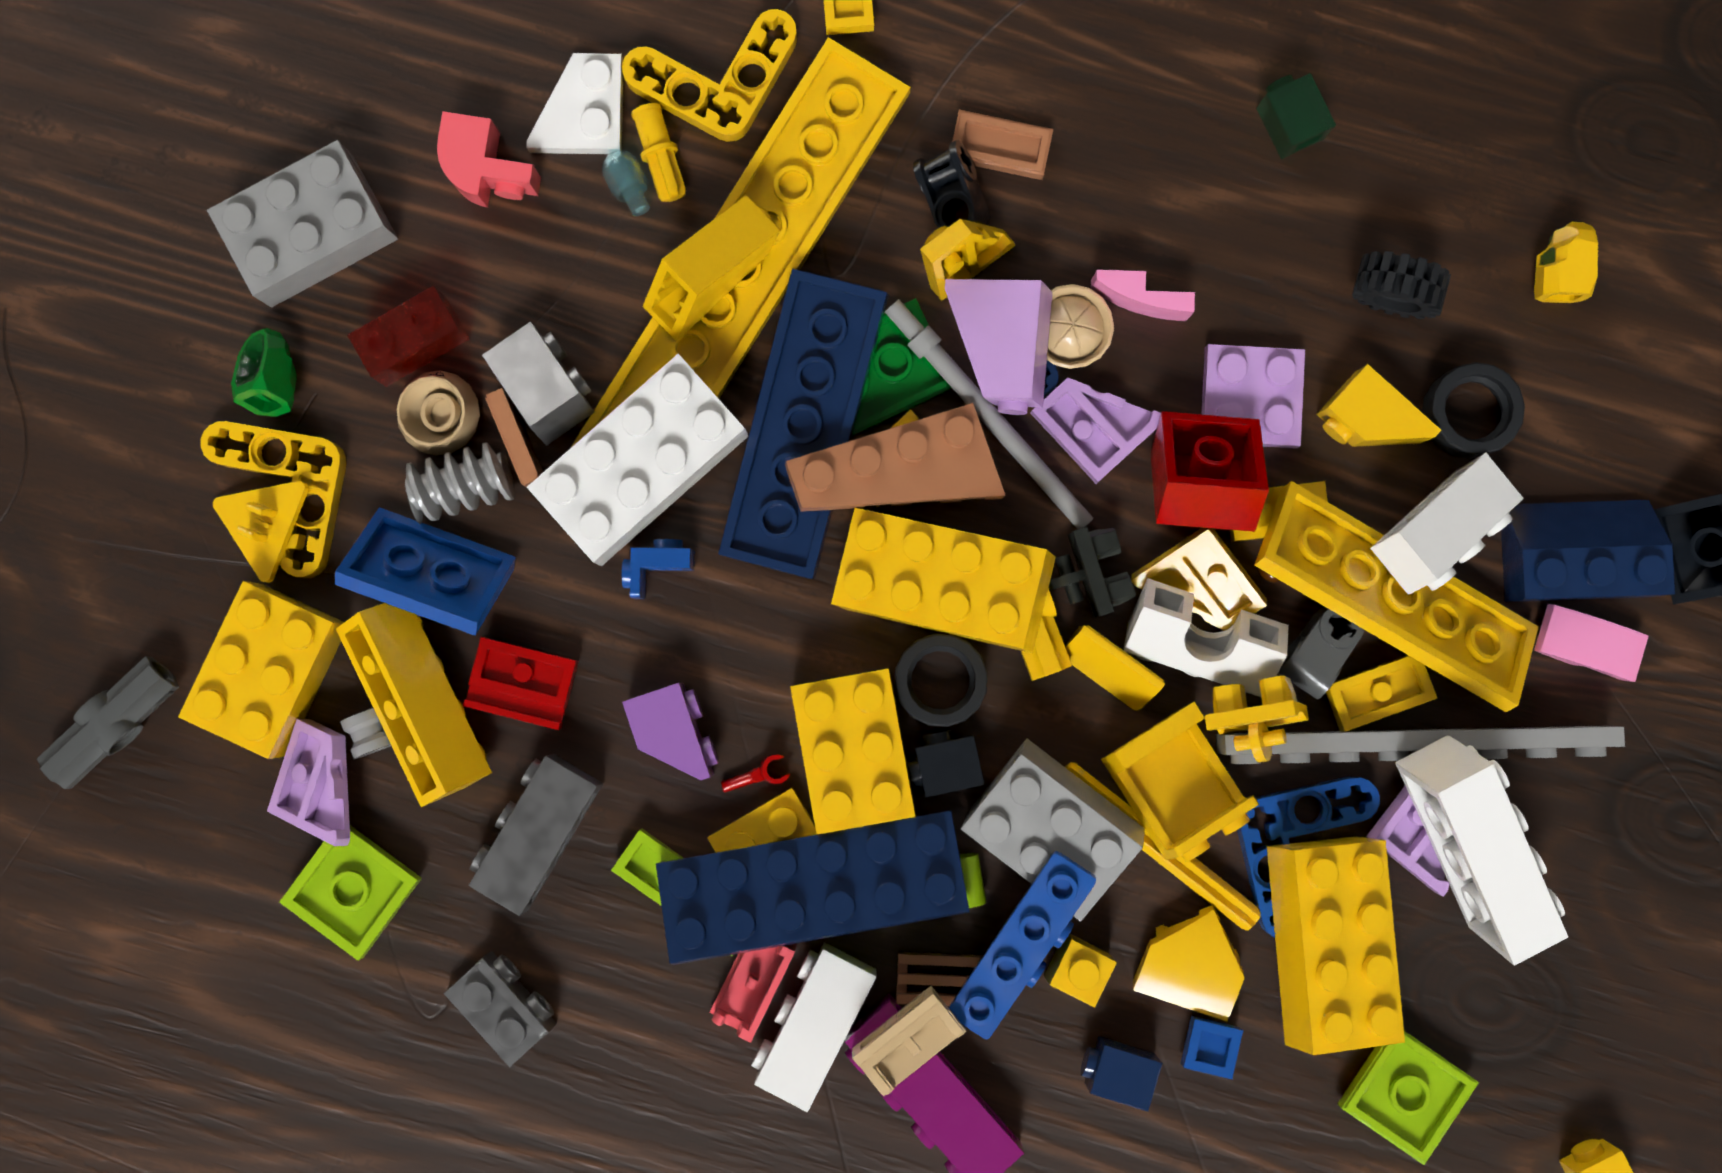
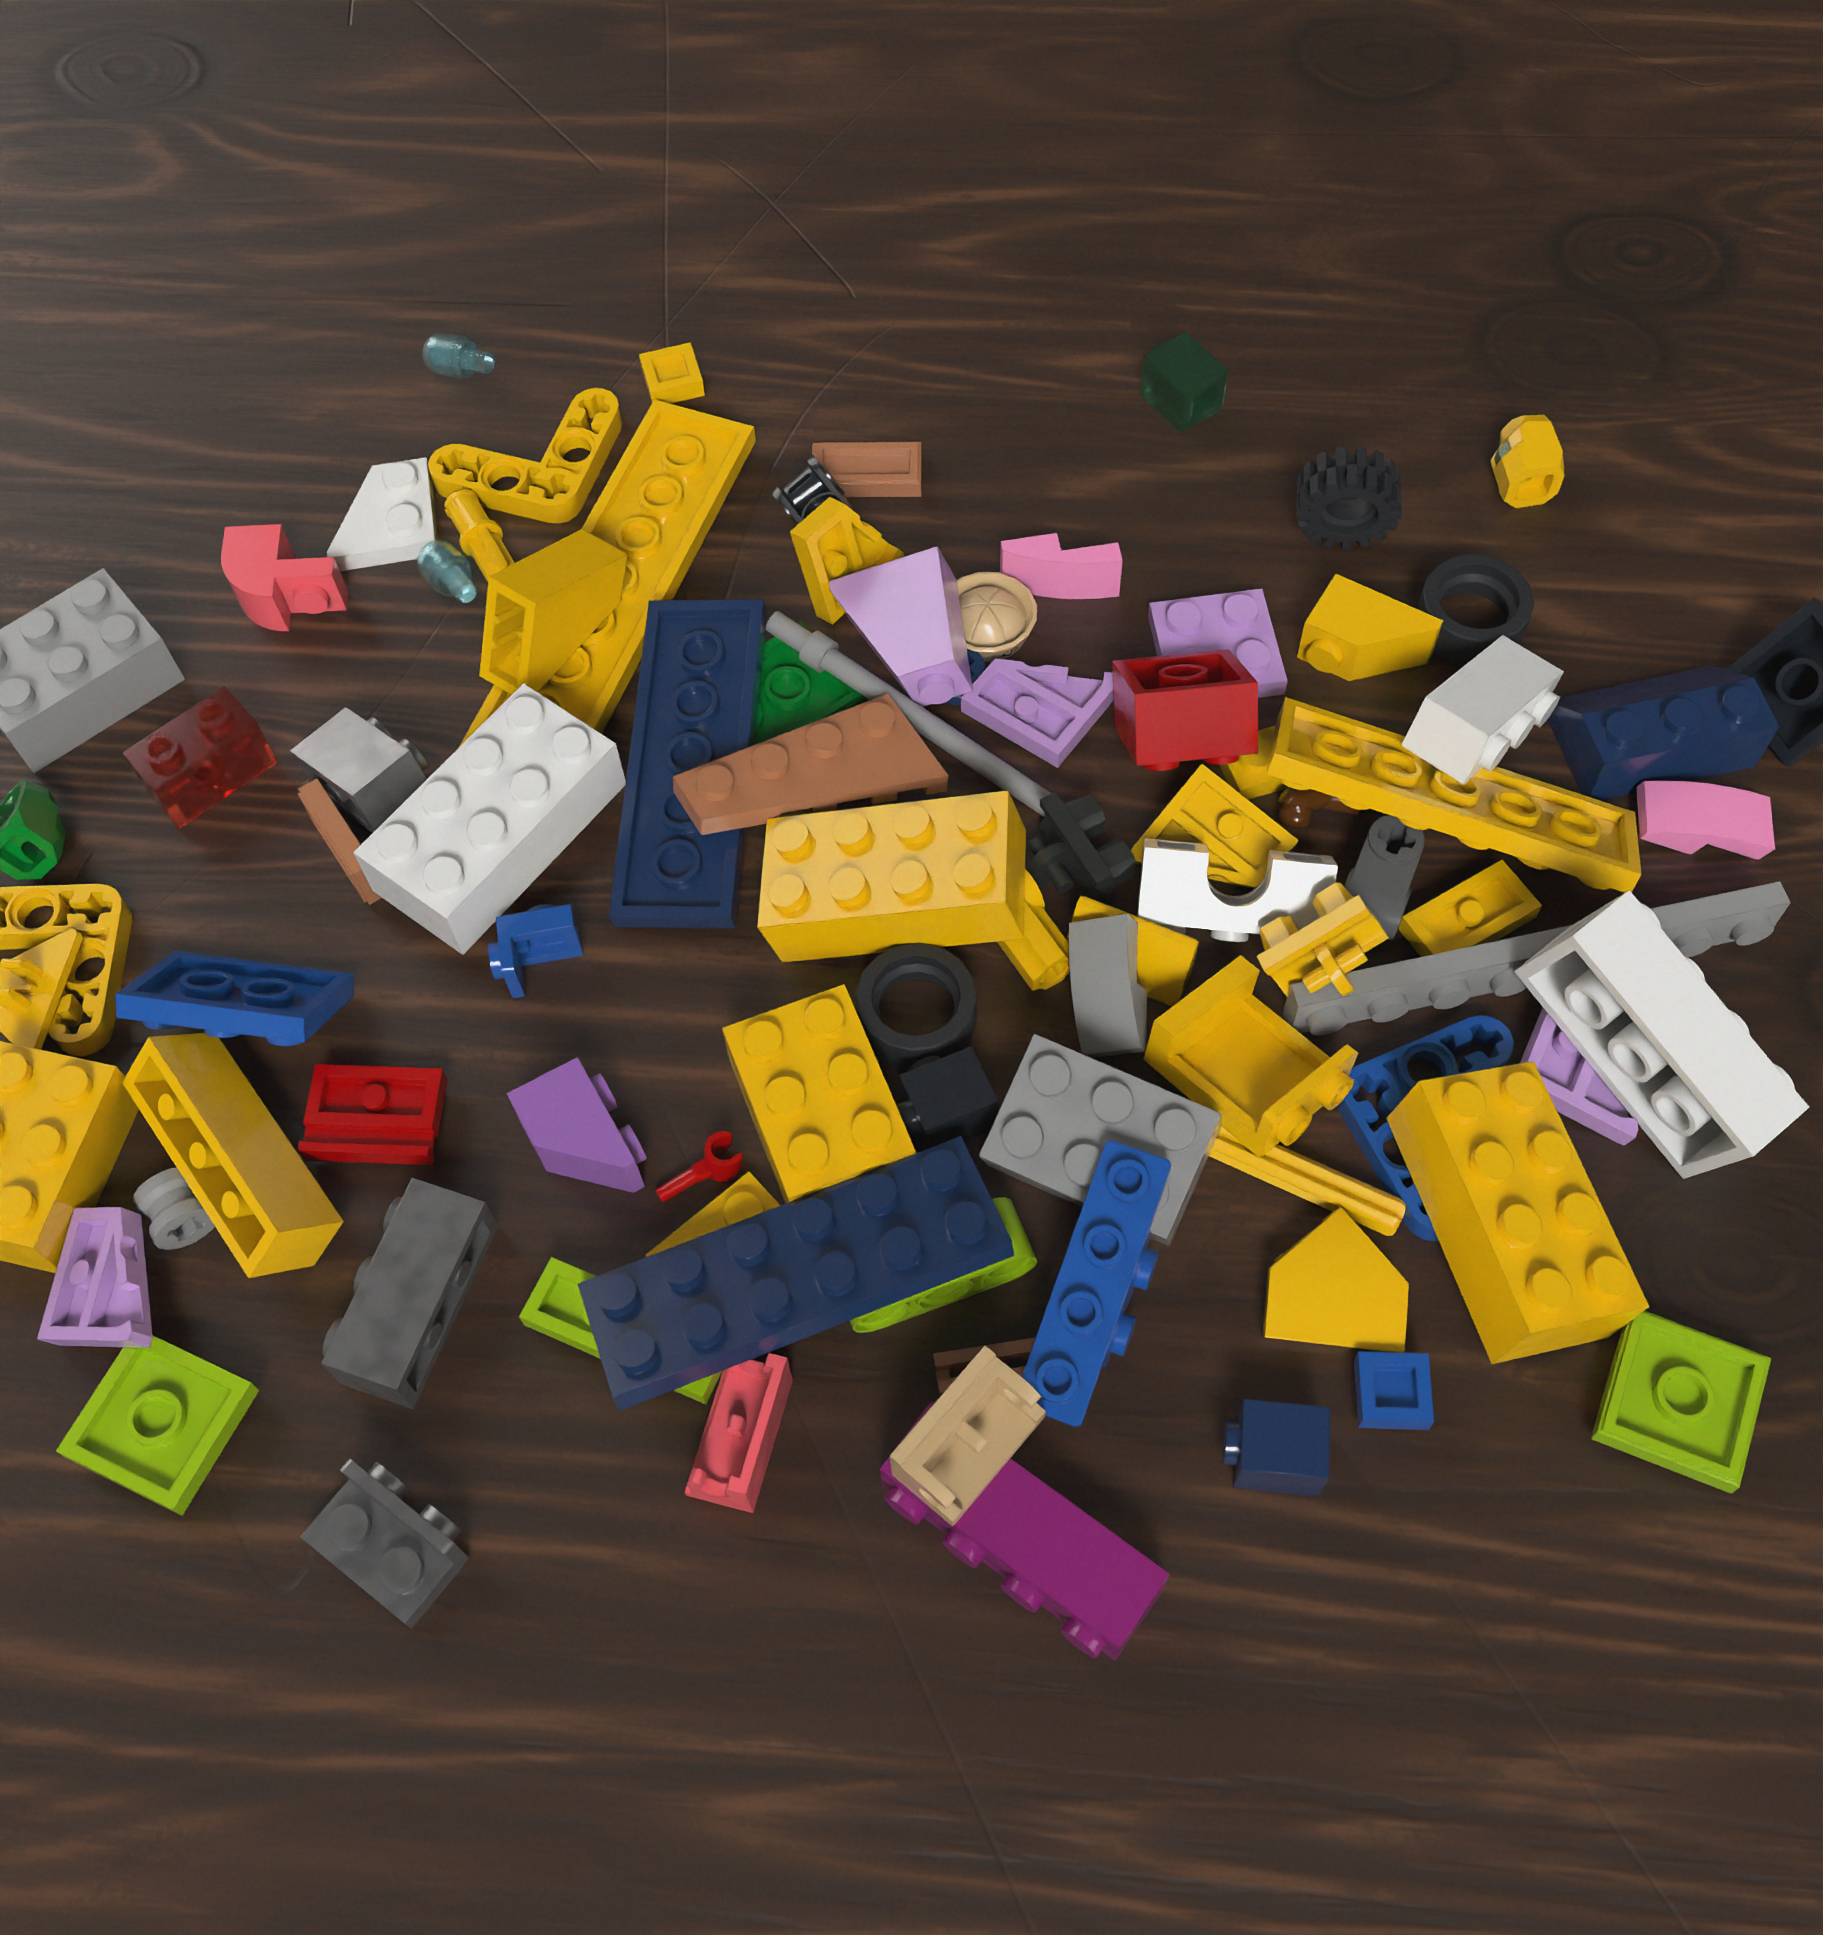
camera: 10 degrees left, 25 degrees down
(452, 410) = (240, 836): tan hat -> none
(458, 483) = (271, 897): light grey piece -> none
(813, 1025) = (832, 1471): white brick -> none
(1080, 970) = (1184, 1316): yellow brick -> none
(1086, 699) = (1104, 986): none -> light grey slope

